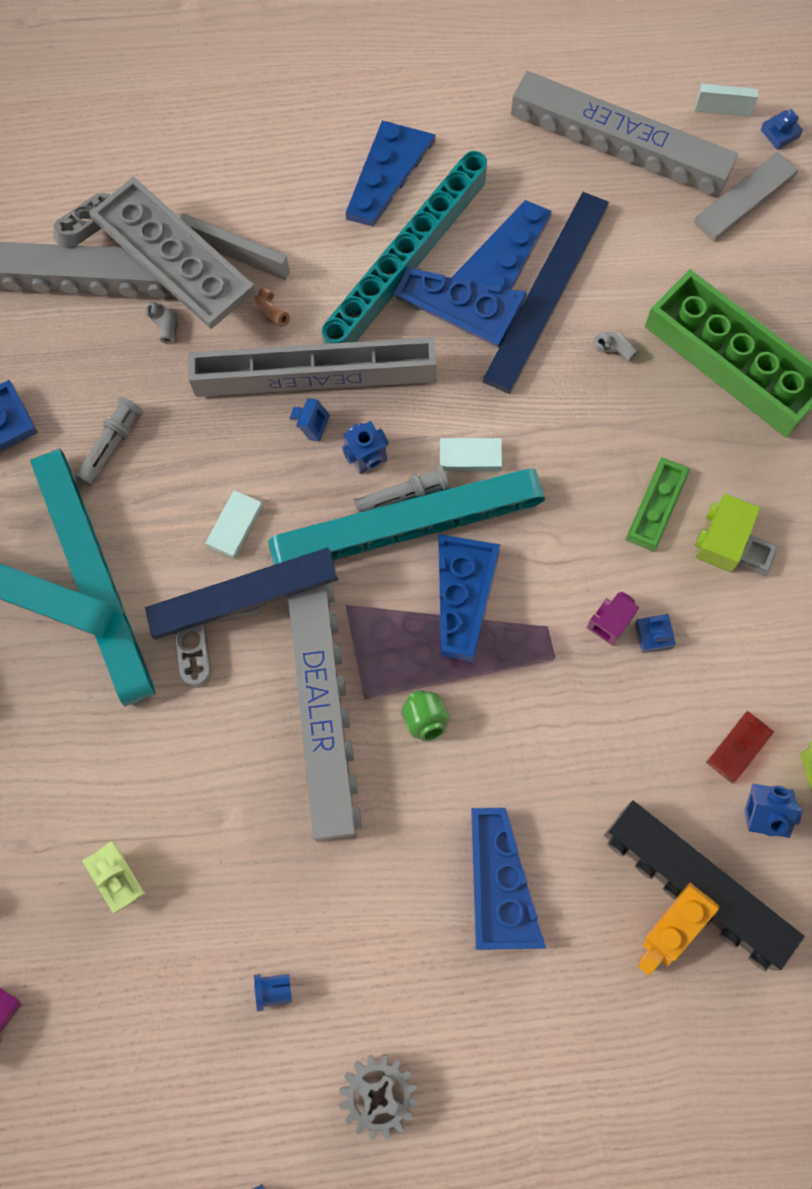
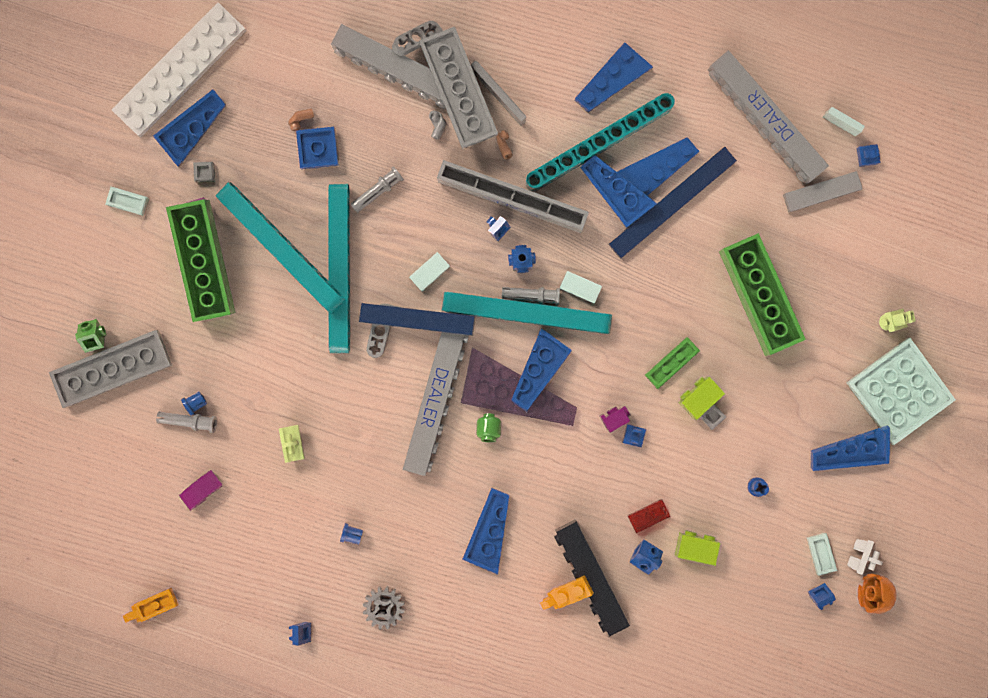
camera: 20 degrees right, 15 degrees up
(615, 343) = (696, 254): light grey arm -> none

